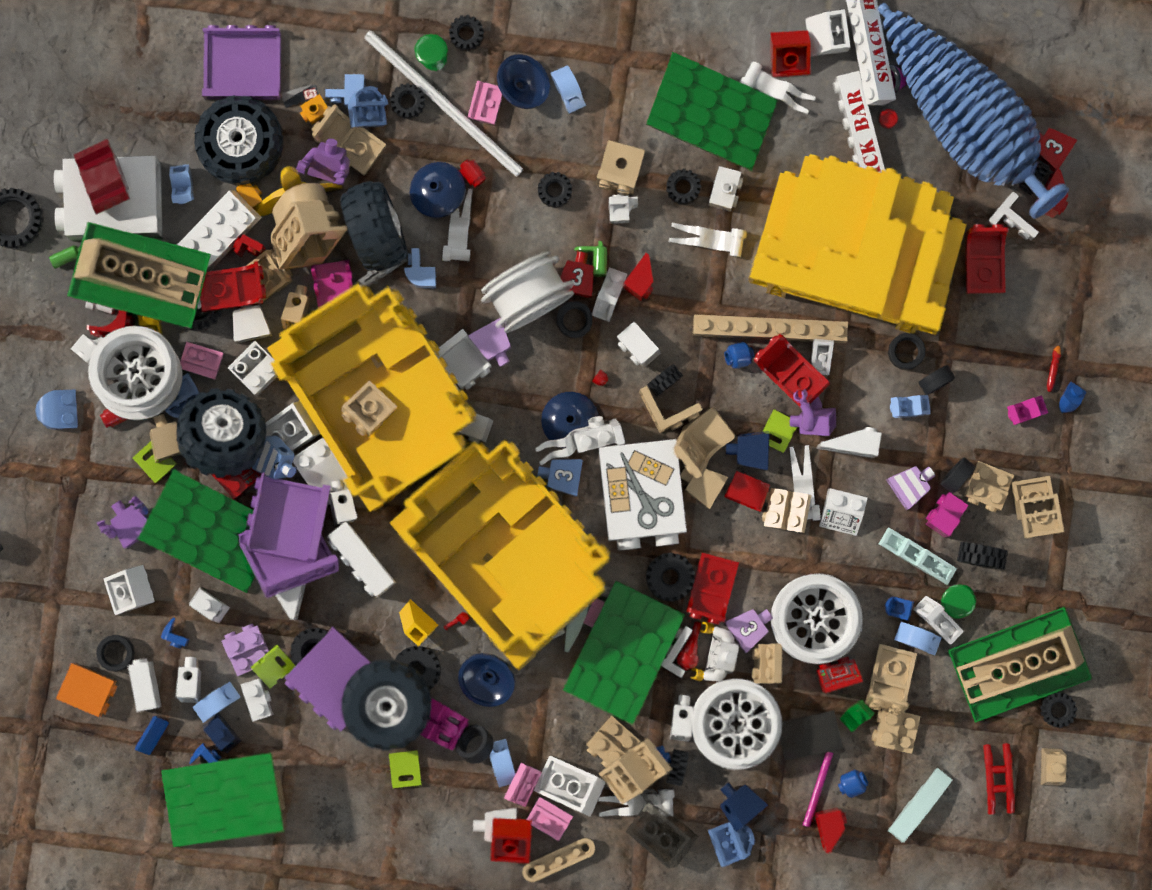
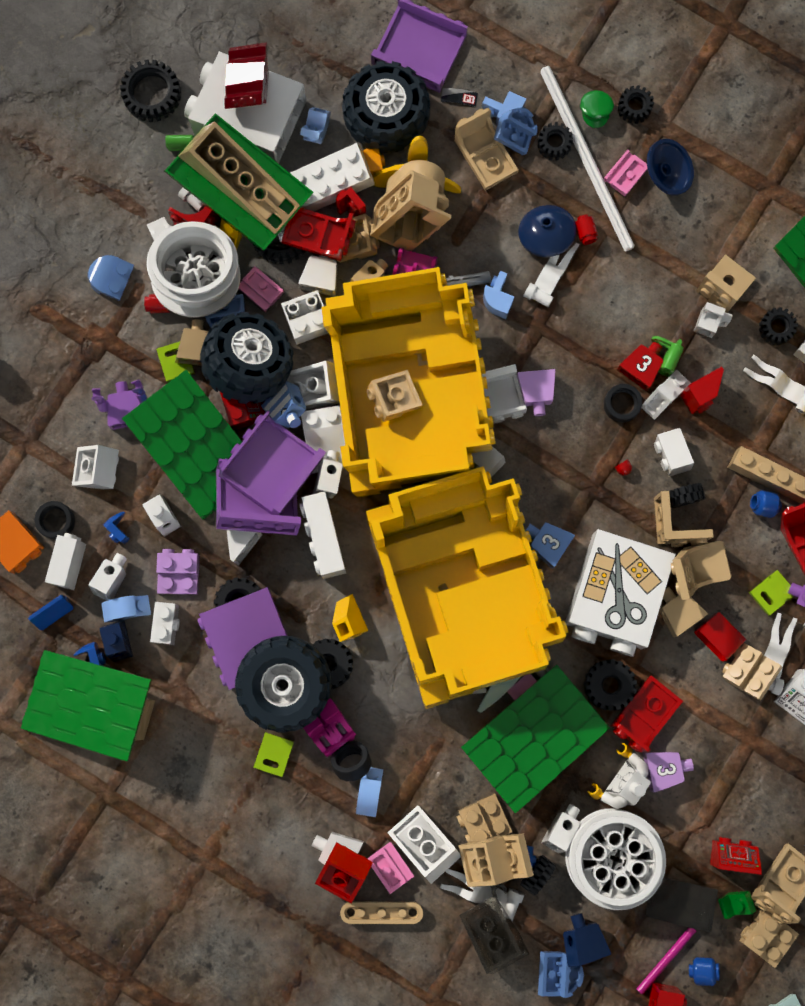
camera: 30 degrees right, 5 degrees down
(269, 669) = (190, 601): lime piece -> none
(313, 109) = (465, 109): light orange brick -> none
(326, 162) = (457, 159): medium lavender torso -> none
(373, 226) = (475, 231): black wheel -> none
(462, 618) = (394, 634): red hand -> none
(482, 687) = (383, 710): dark blue dish -> none
(523, 784) = (379, 822): bright pink plate -> none
(527, 291) = (593, 352): white wheel -> none
(554, 178) = (664, 269): black tyre -> none
(564, 405) = (571, 506): dark blue dish -> none
(568, 89) = (710, 192): light blue brick -> none
(568, 441) = (577, 513): white flag -> none
(599, 436) = (603, 520): white bracket -> none
(681, 636) = (596, 748): white bracket -> none
(688, 656) = (594, 770): red piece -> none
(751, 449) = (741, 598): dark blue torso -> none
(767, 663) = (671, 813): tan plate -> none
(848, 625) = (770, 777): white wheel -> none

